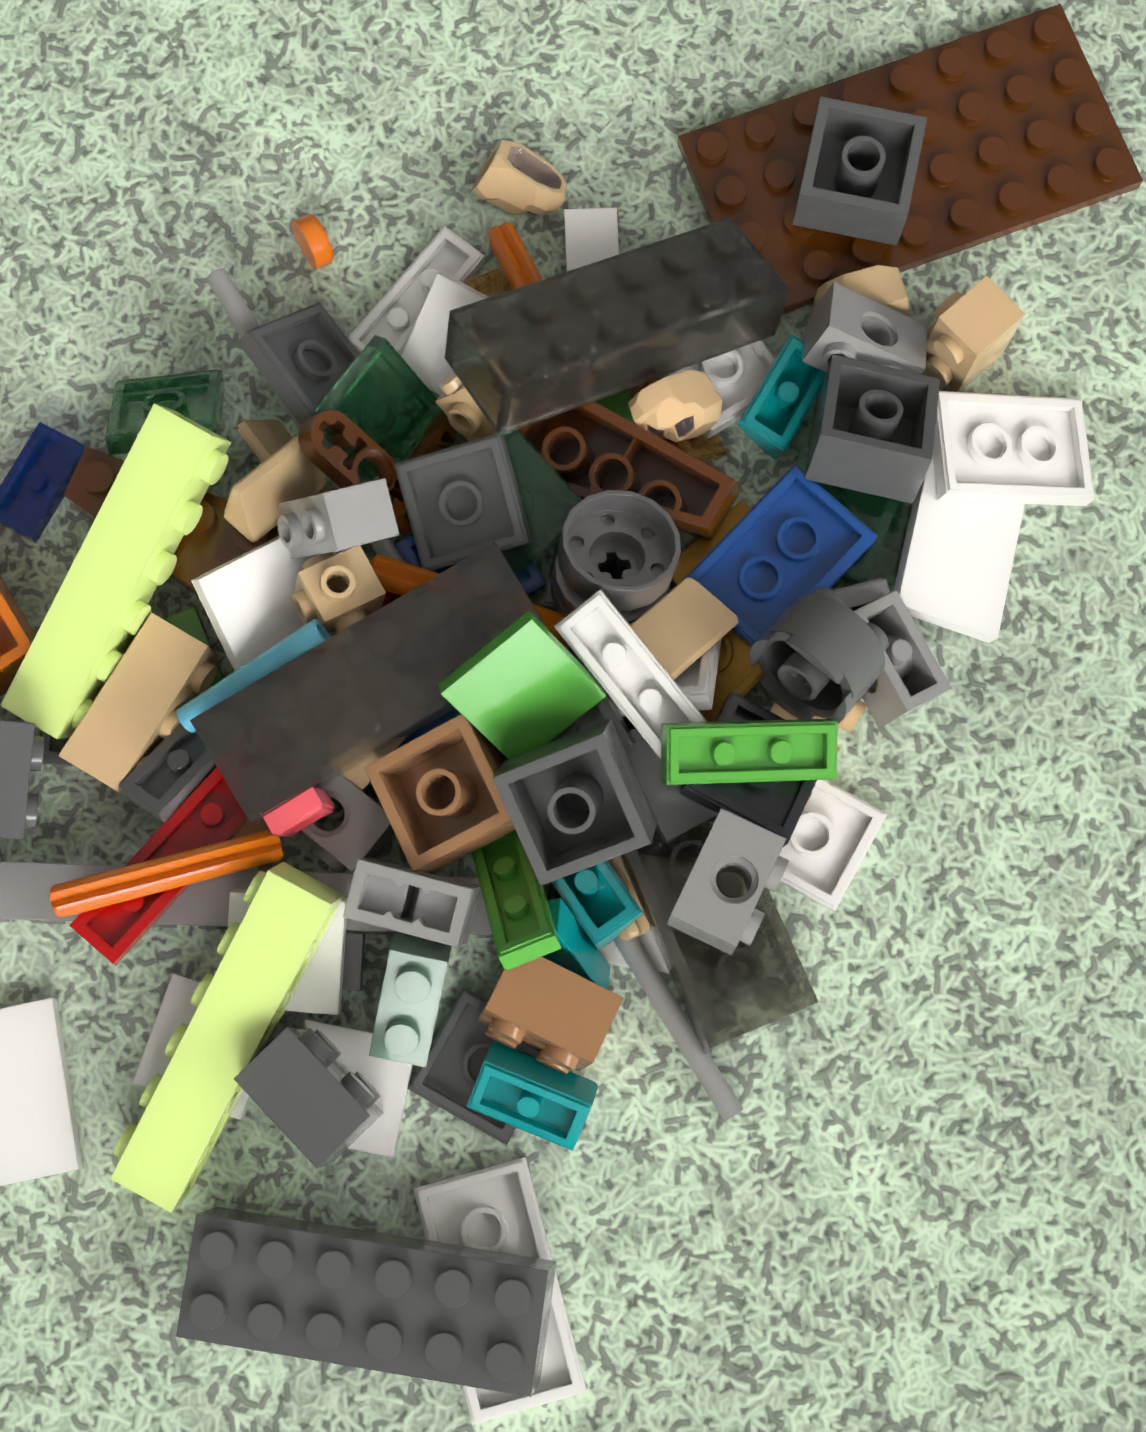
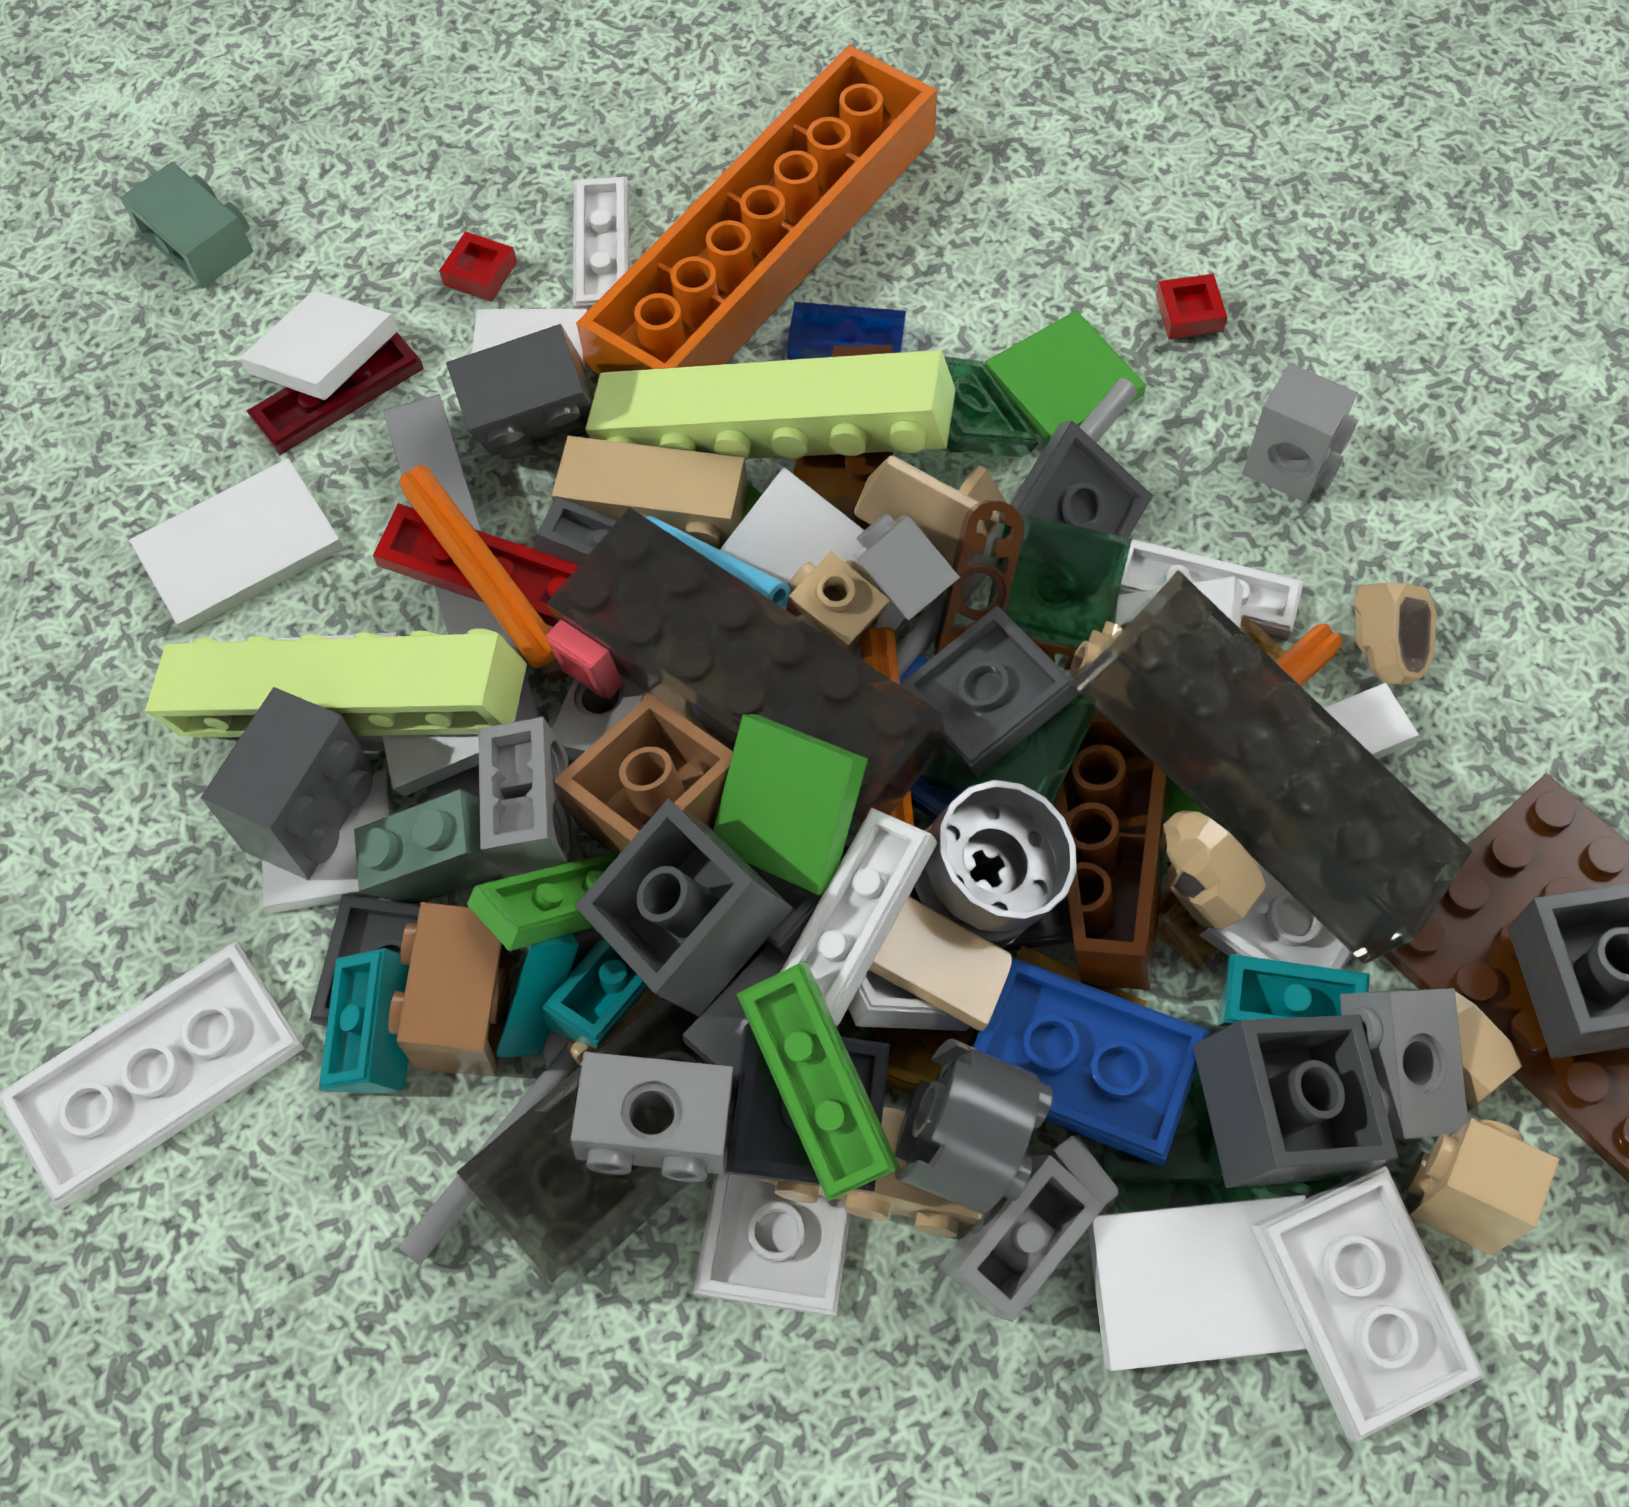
camera: 70 degrees right, 15 degrees down
(143, 188) = (1191, 306): none -> red plate
(164, 321) = (1060, 373): none -> bright green tile
(313, 241) = (1216, 467): orange tile -> none
(324, 161) = (1300, 433): none -> light grey brick
(367, 1300) = (97, 940): dark grey brick -> none

